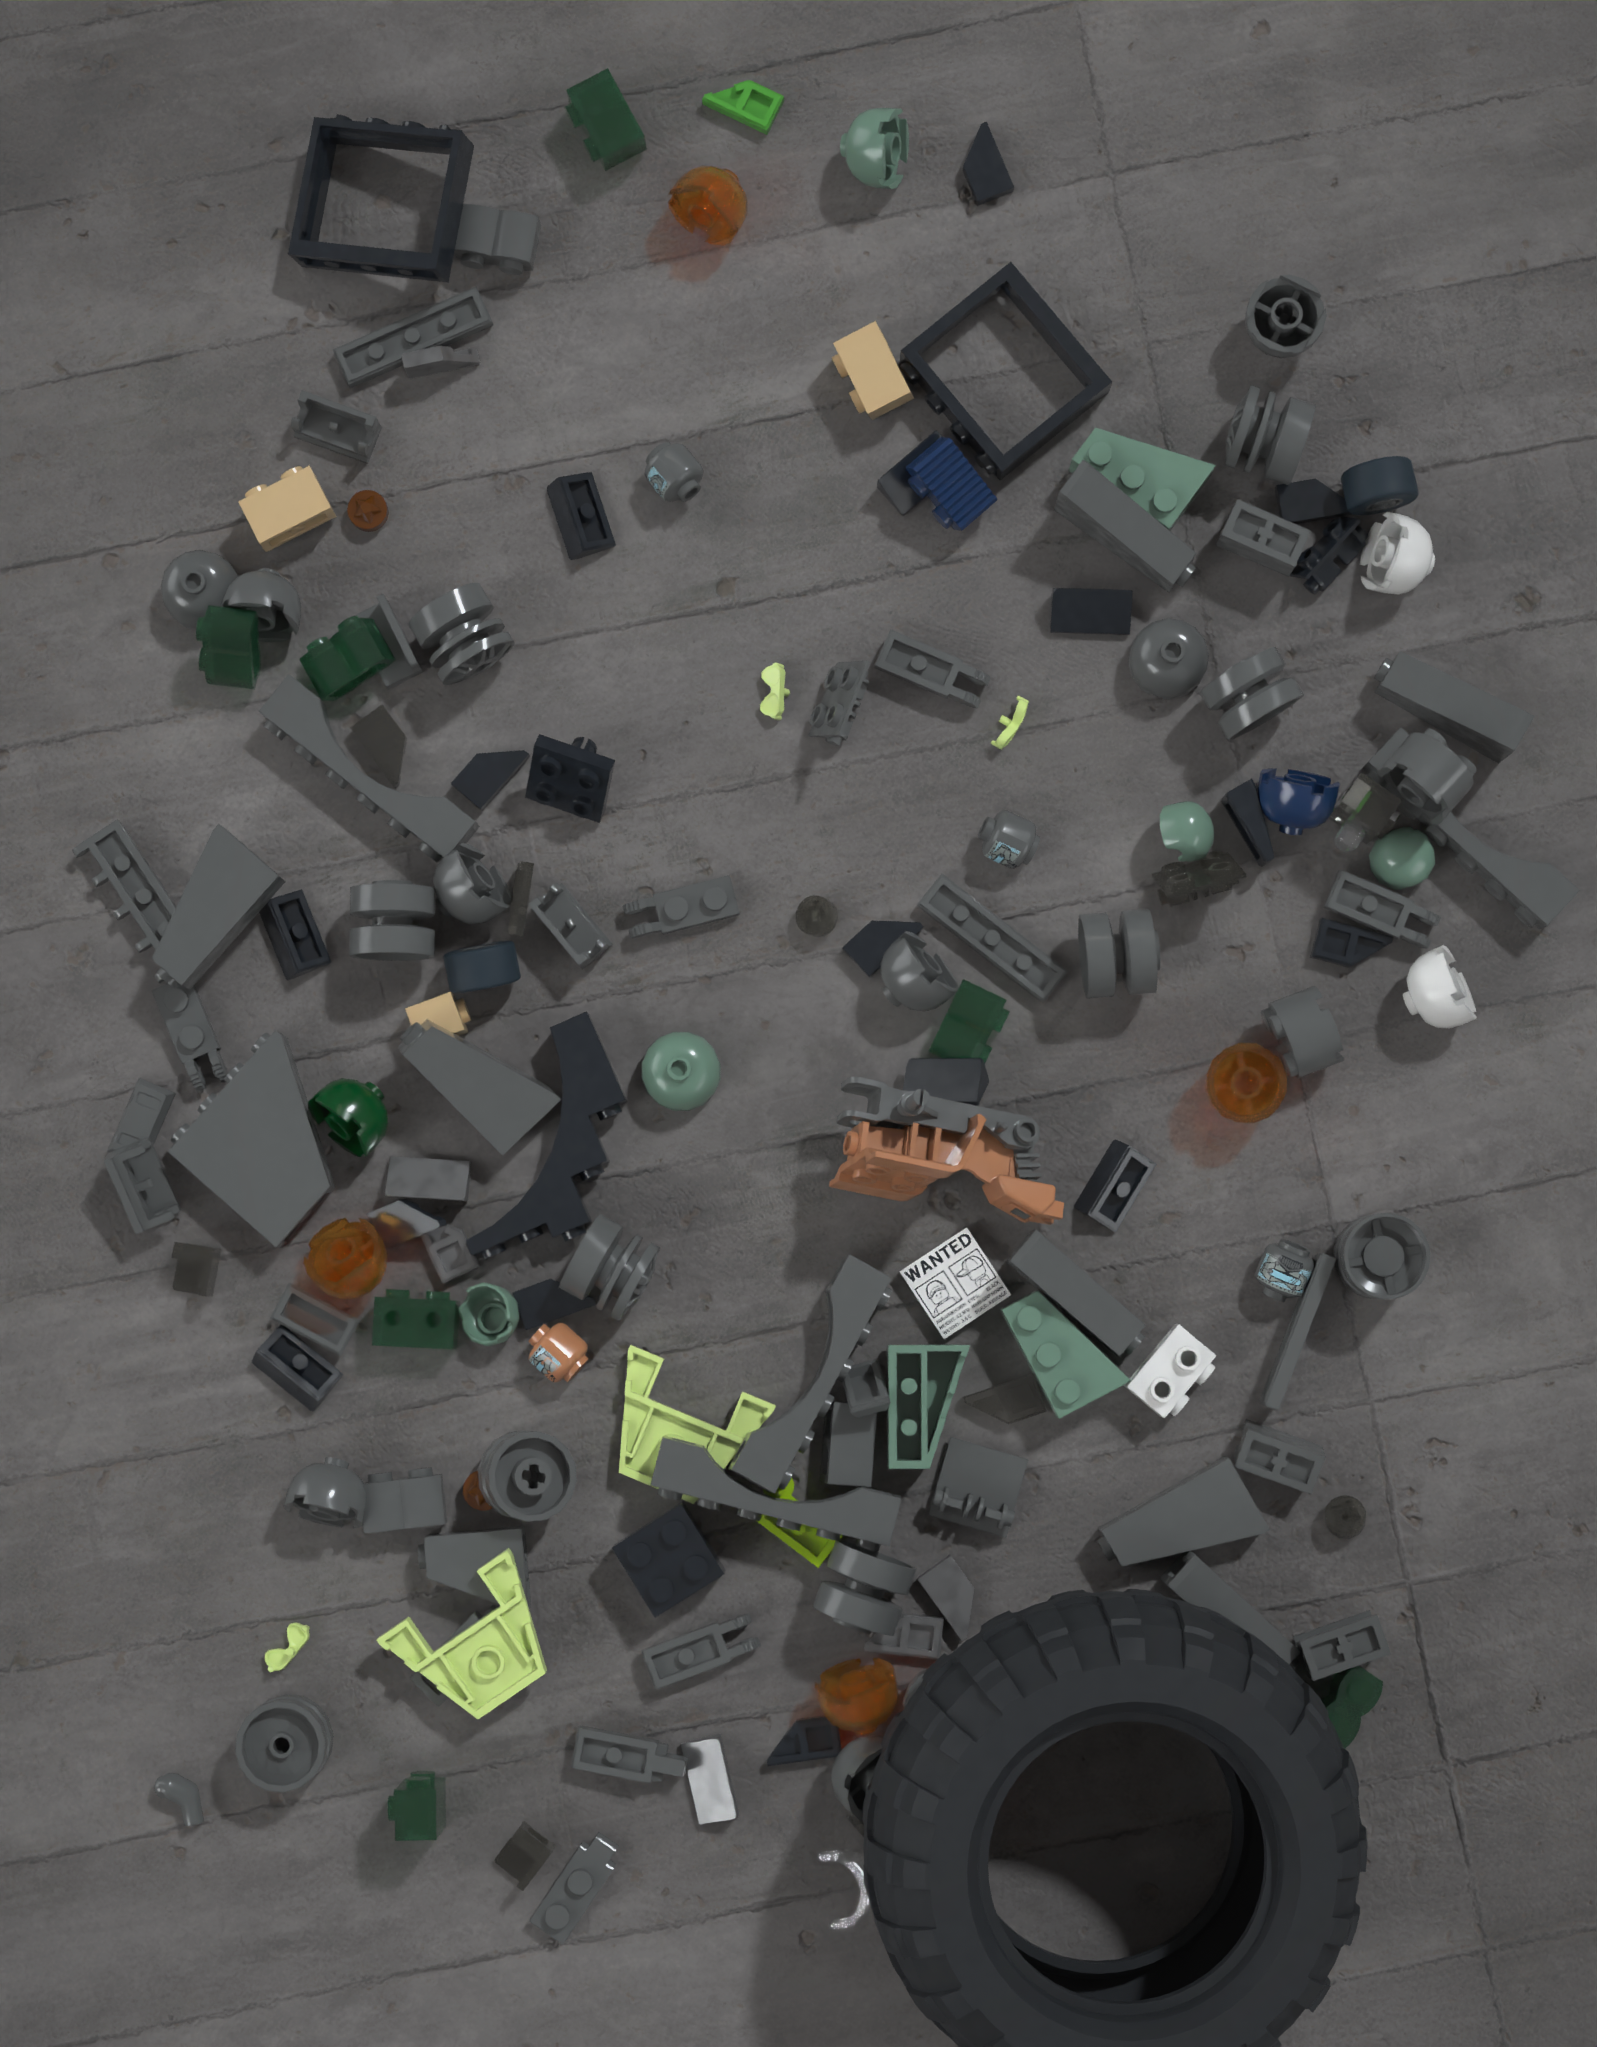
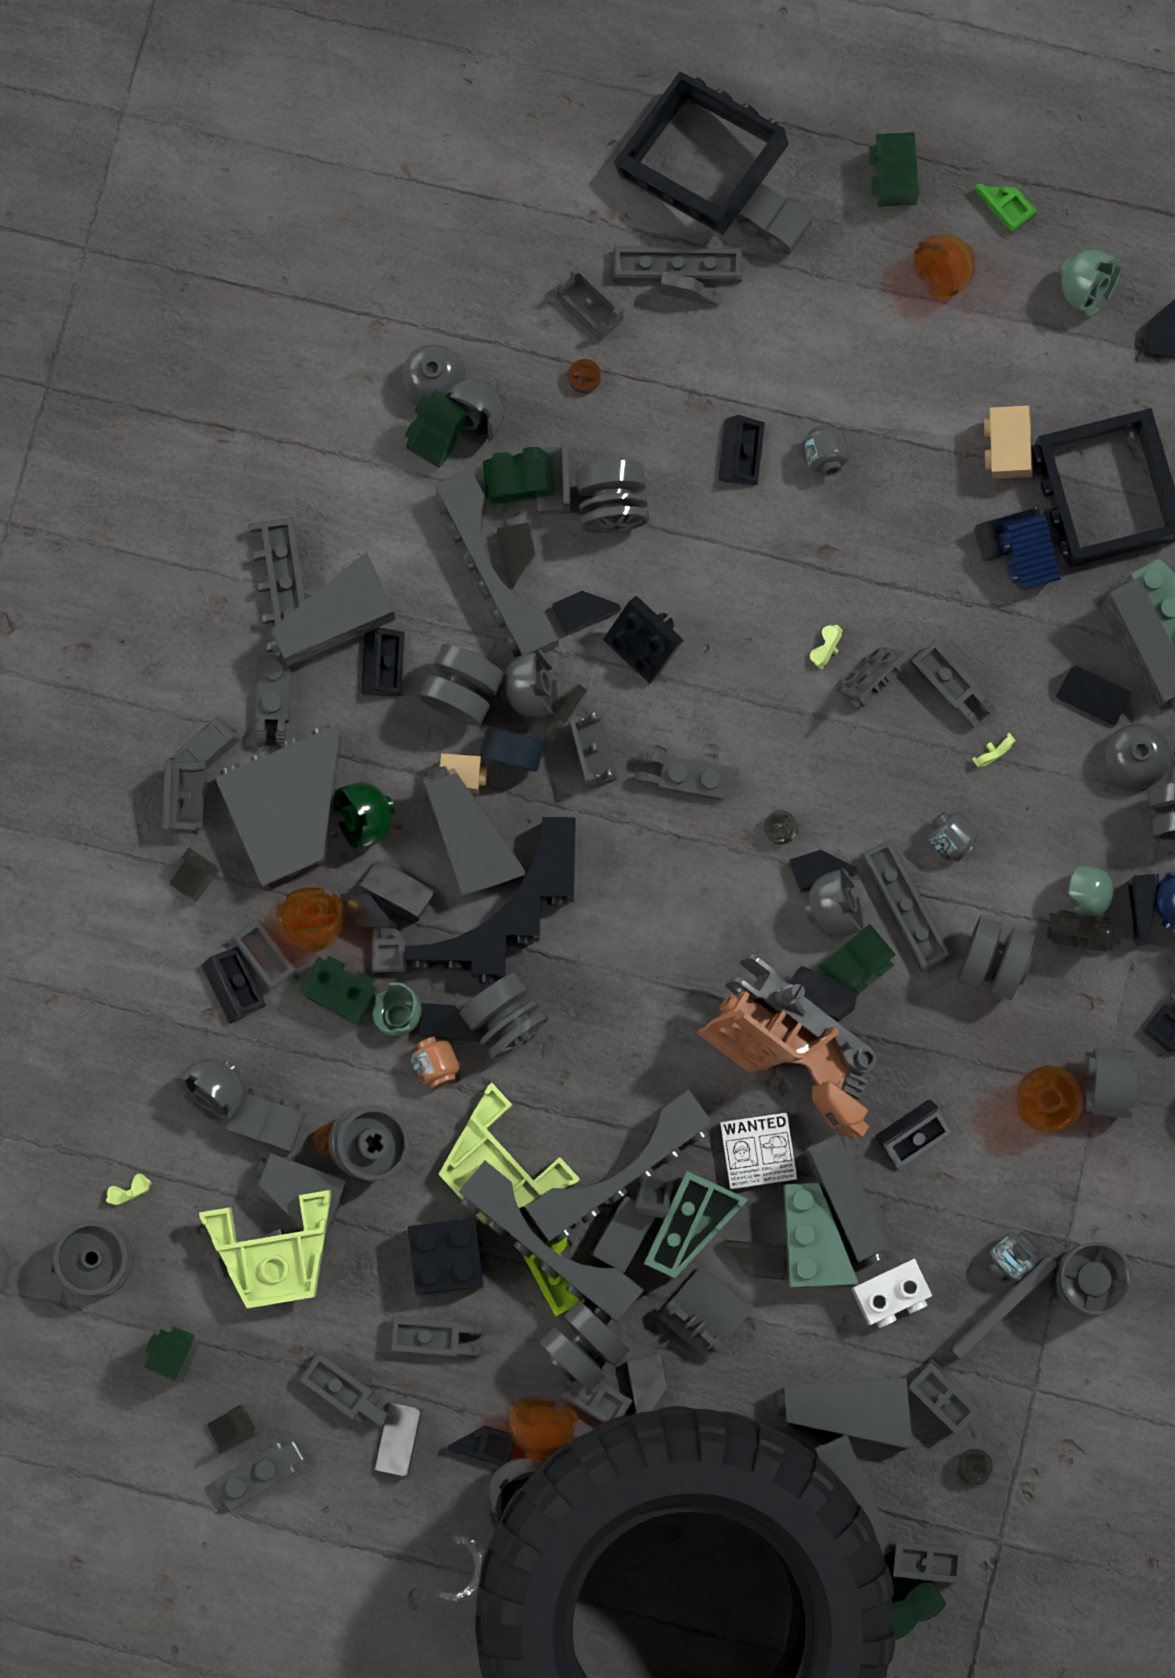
camera: 20 degrees right, 5 degrees down
(286, 507) = (525, 346): tan brick -> none
(681, 1071) = (625, 896): sand green cylinder -> none

